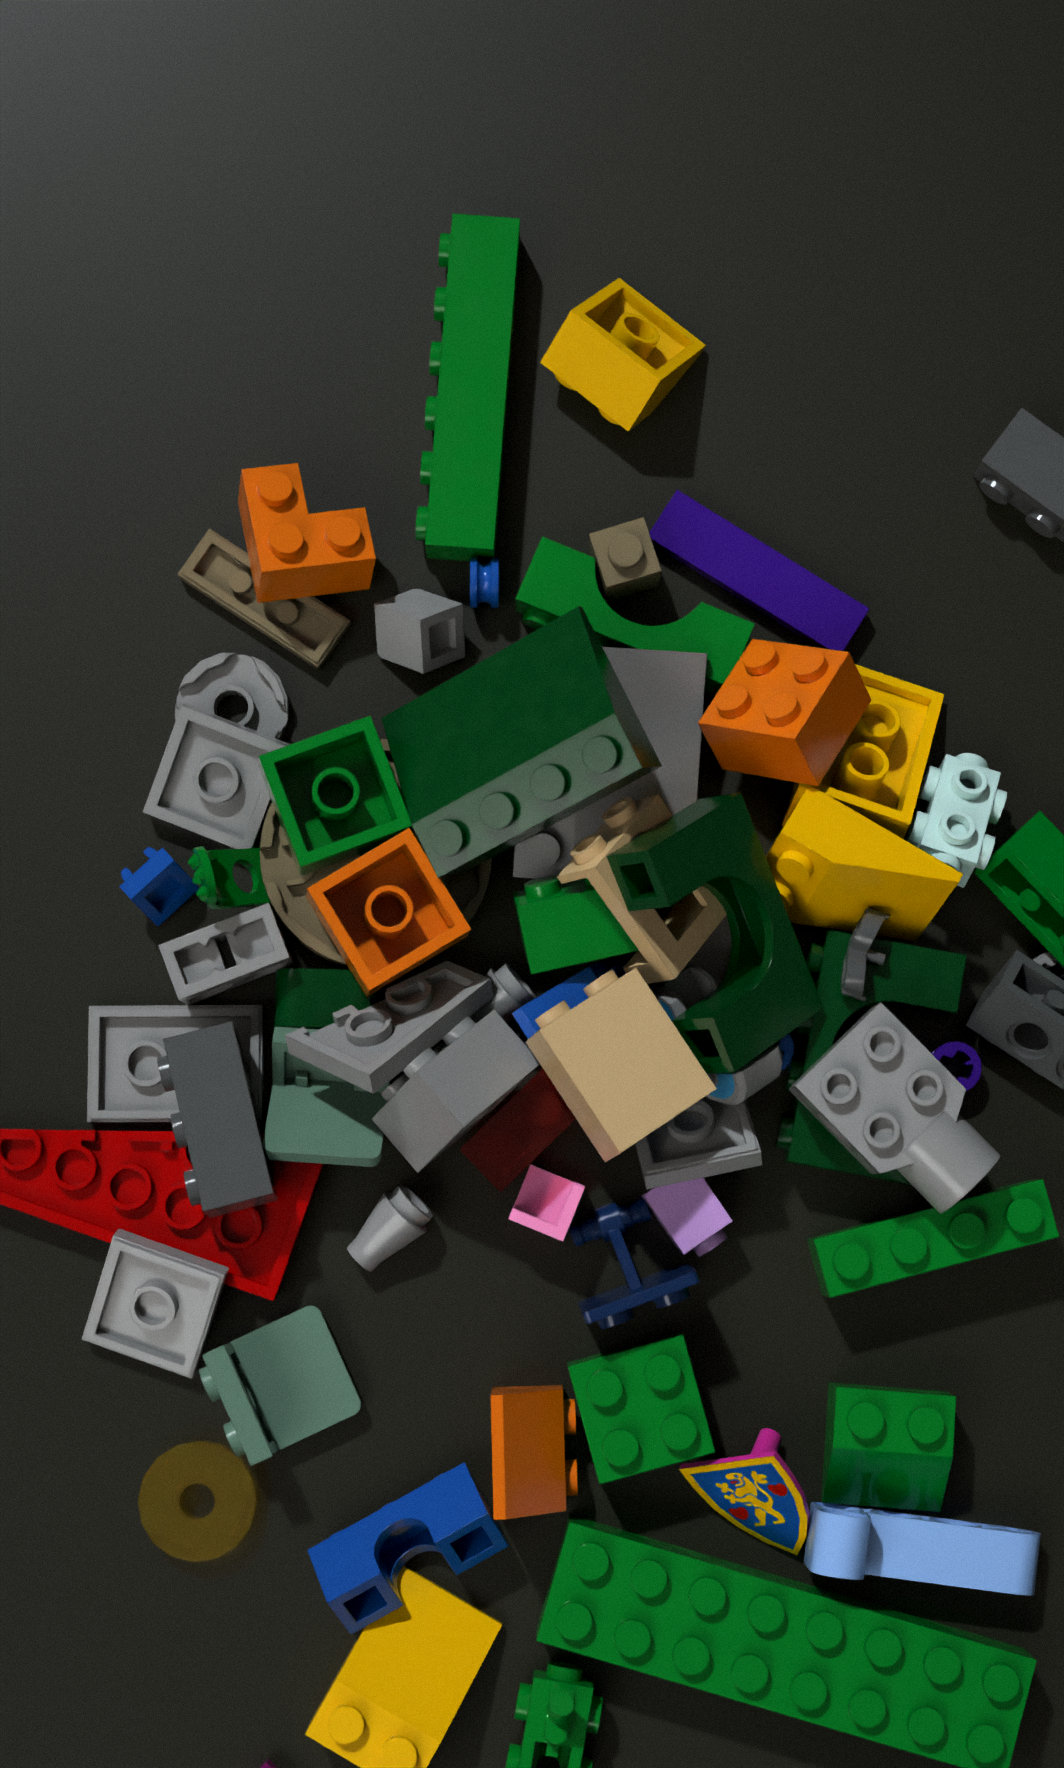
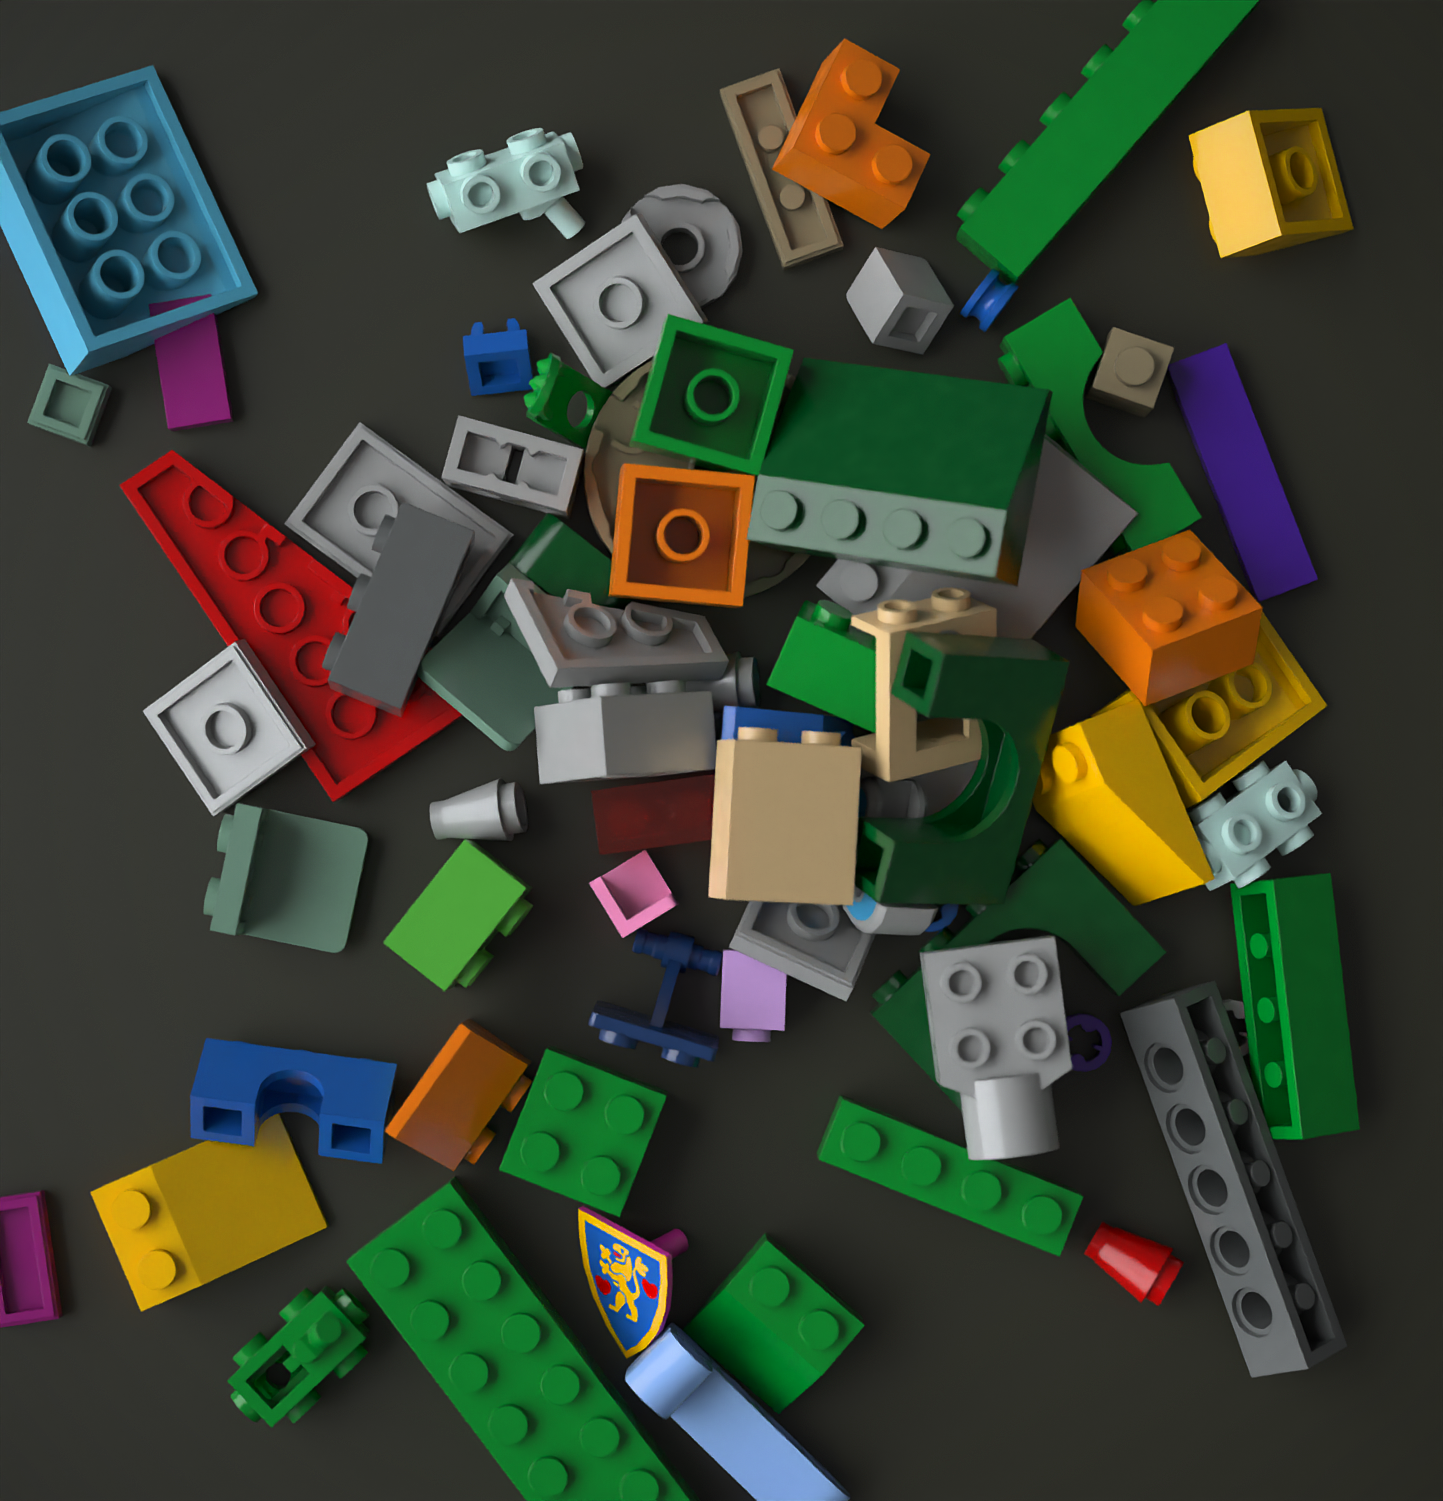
camera: 35 degrees right, 5 degrees up
(81, 739) = (522, 178): none -> light aqua brick
(162, 1505) = (105, 931): clear yellow tile -> none
(430, 1316) = (459, 917): none -> bright green brick
(858, 953) = (1072, 879): dark grey piece -> none

